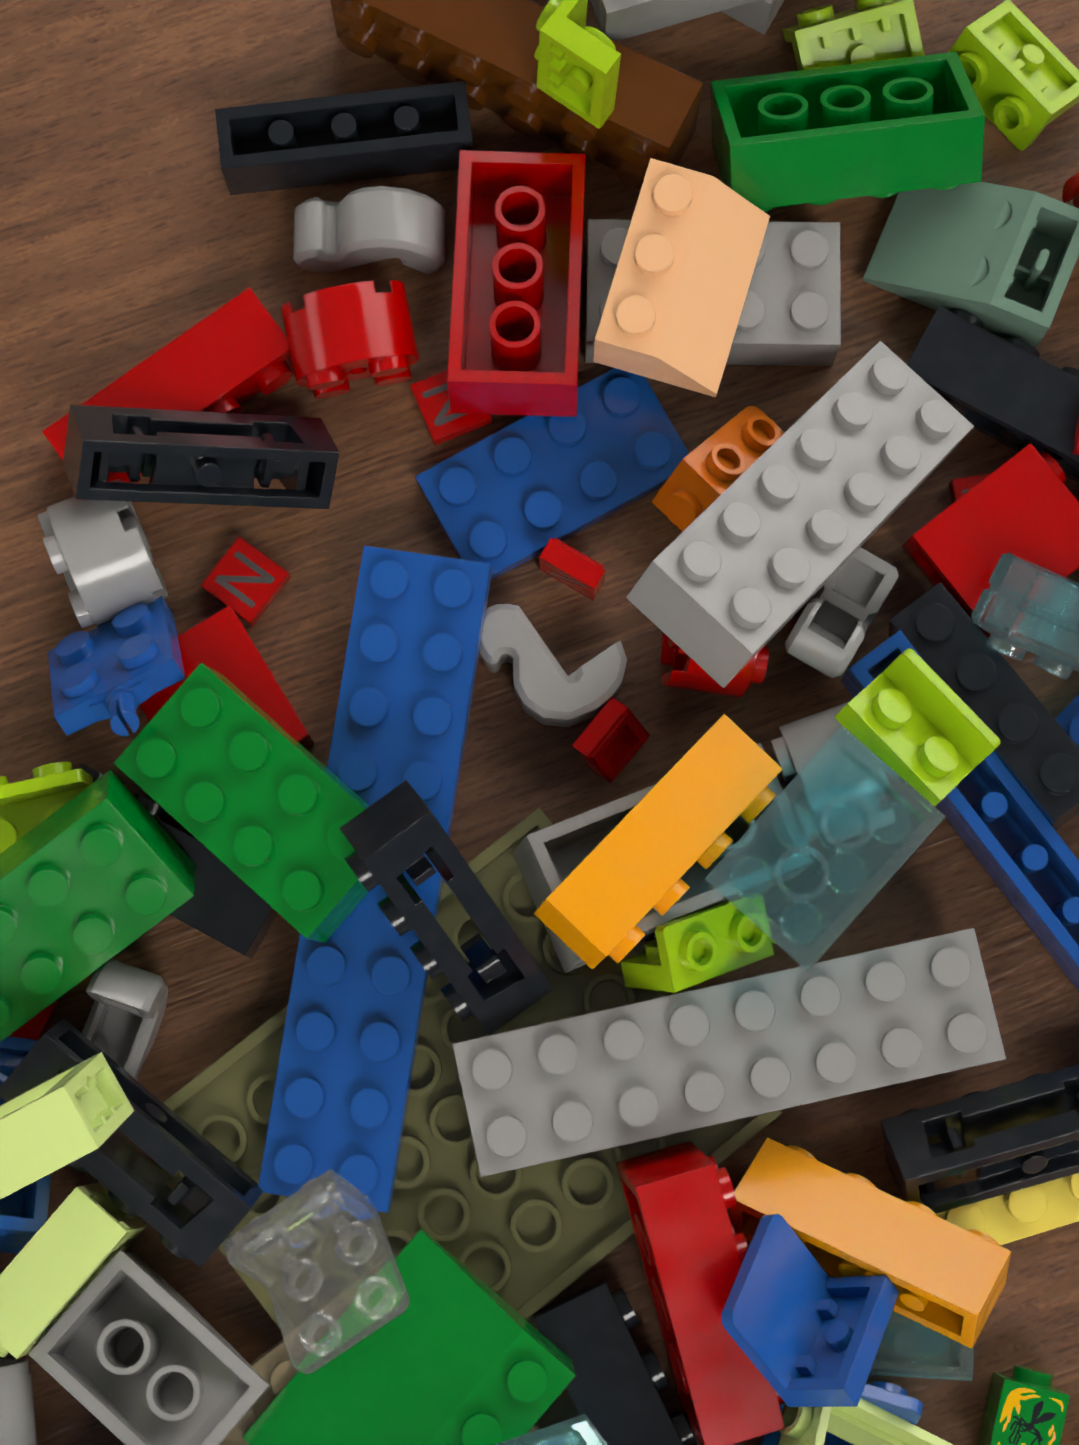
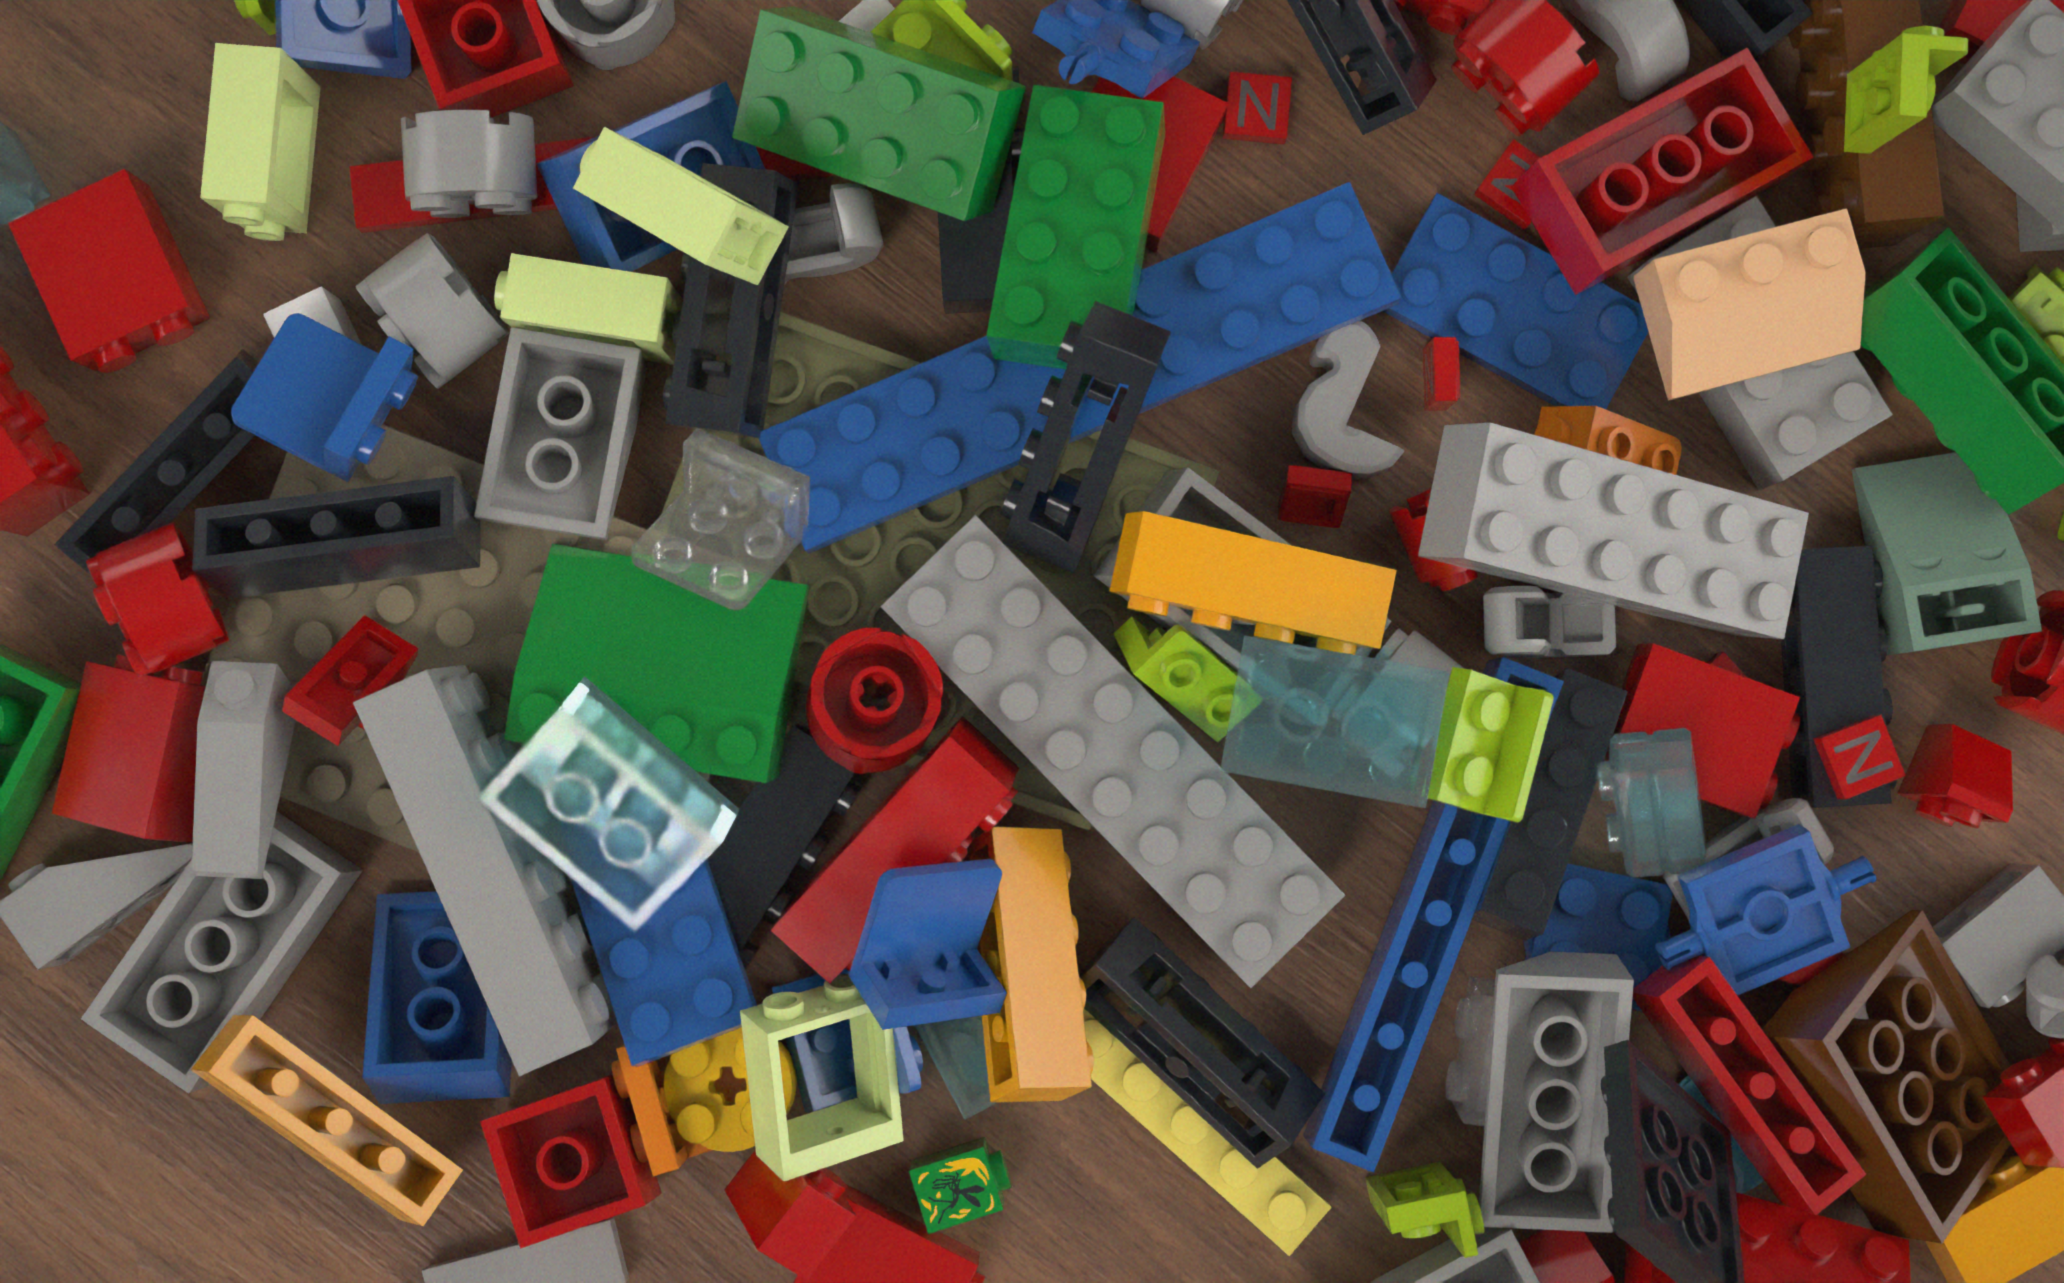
camera: 55 degrees right, 5 degrees up
(530, 1207) = (881, 665): none -> red brick

